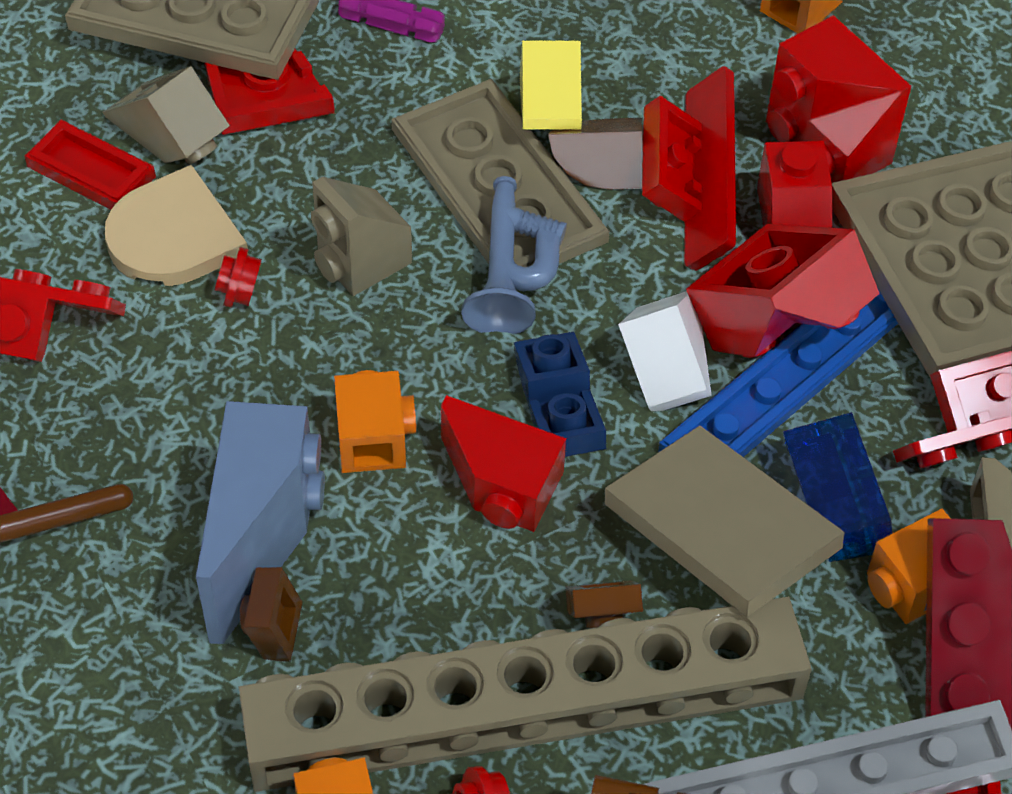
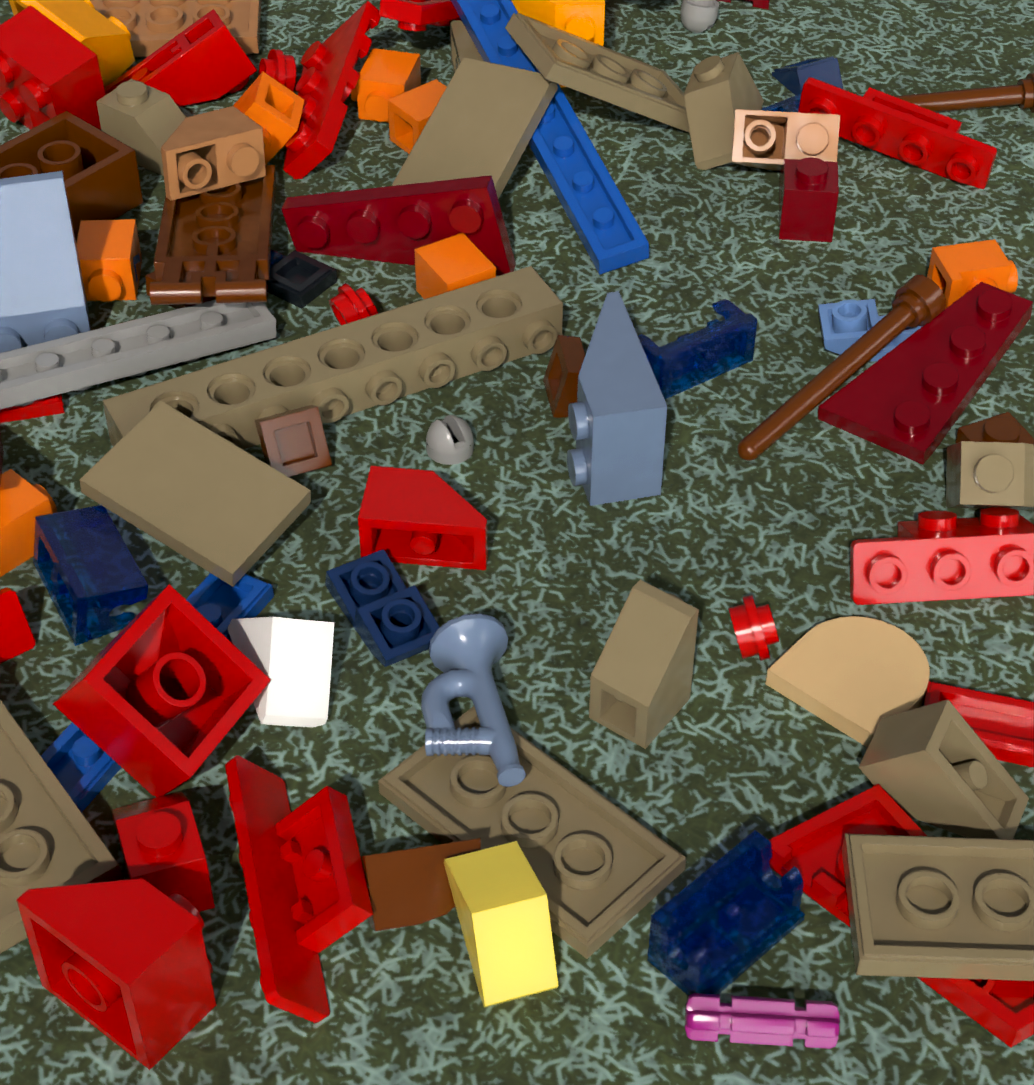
camera: 165 degrees right, 10 degrees down
(109, 629) = (703, 353): none -> clear blue hinge
(373, 420) = (553, 527): orange brick -> none
(389, 70) = (725, 919): none -> clear blue hinge
(416, 587) = (440, 441): none -> light grey hinge

